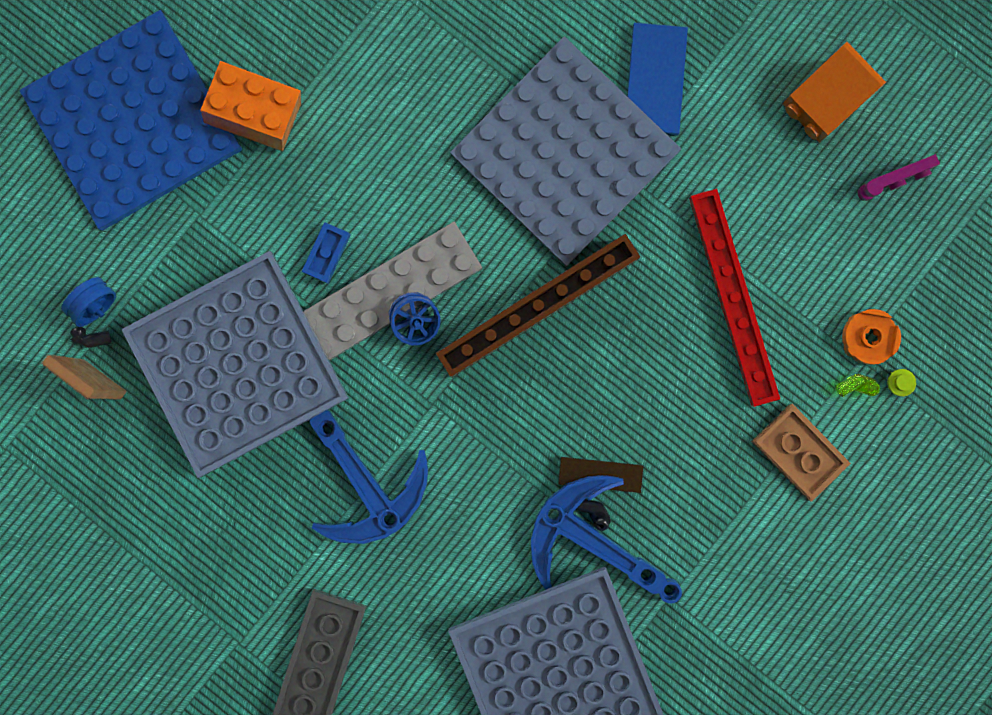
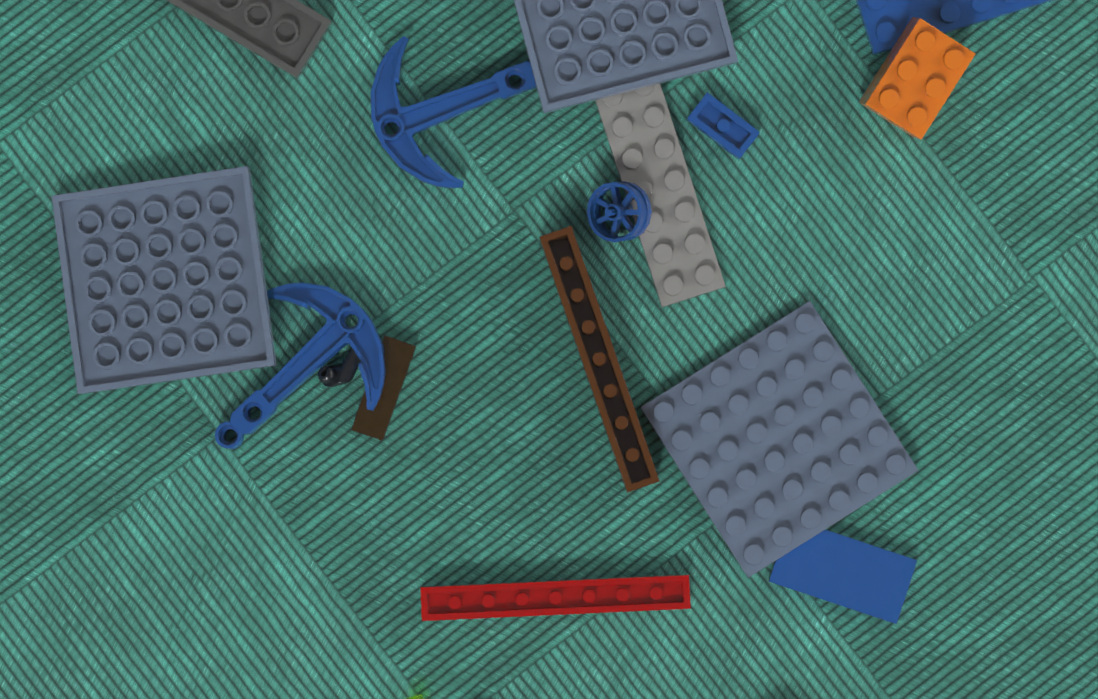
camera: 100 degrees right, 0 degrees up
(800, 452) = (352, 632): medium nougat tile -> none

